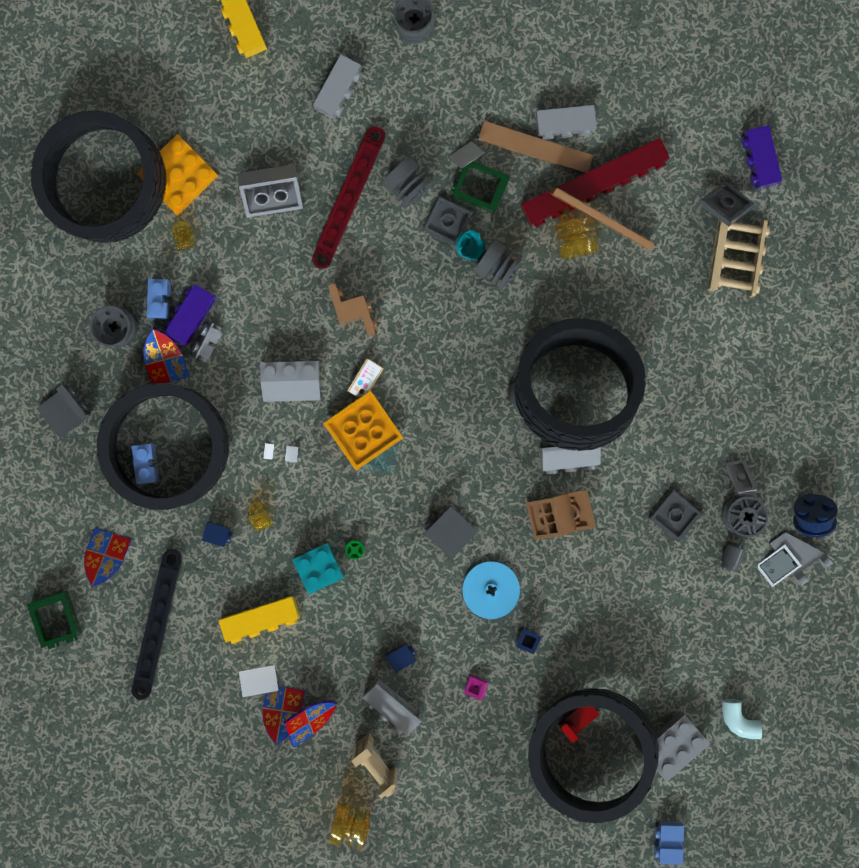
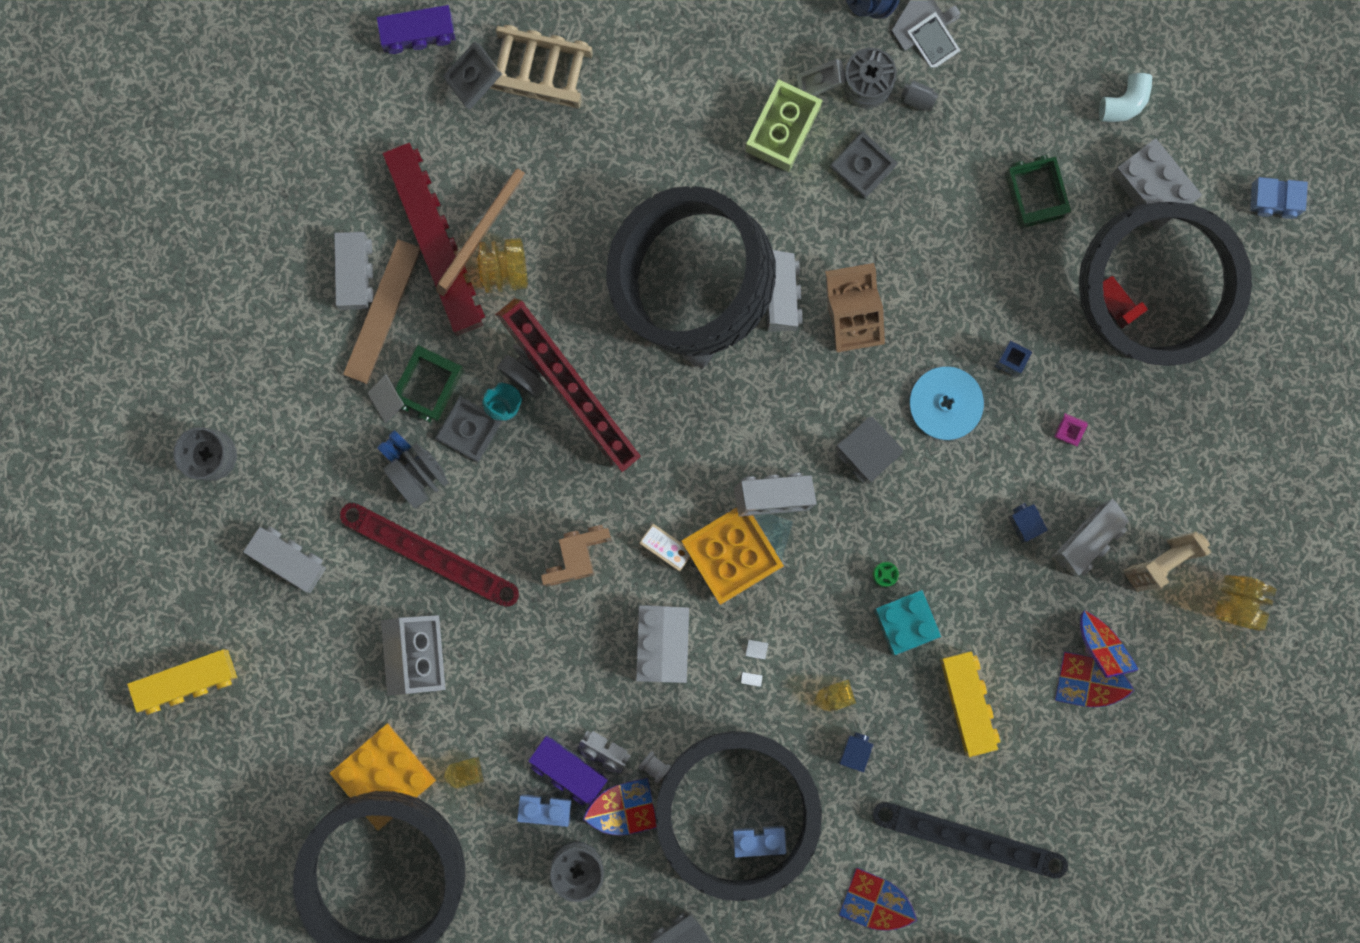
camera: 85 degrees left, 5 degrees down
(197, 380) = (654, 767): none -> light grey bush
(258, 681) = (1050, 711): white sticker -> none
(410, 460) = (774, 495): none -> light grey brick
(428, 160) = (390, 451): none -> blue wheel
(484, 293) = (567, 384): none -> dark red brick
(644, 661) = (1046, 215): none -> dark green window
(702, 450) = (783, 125): none -> yellowish green brick

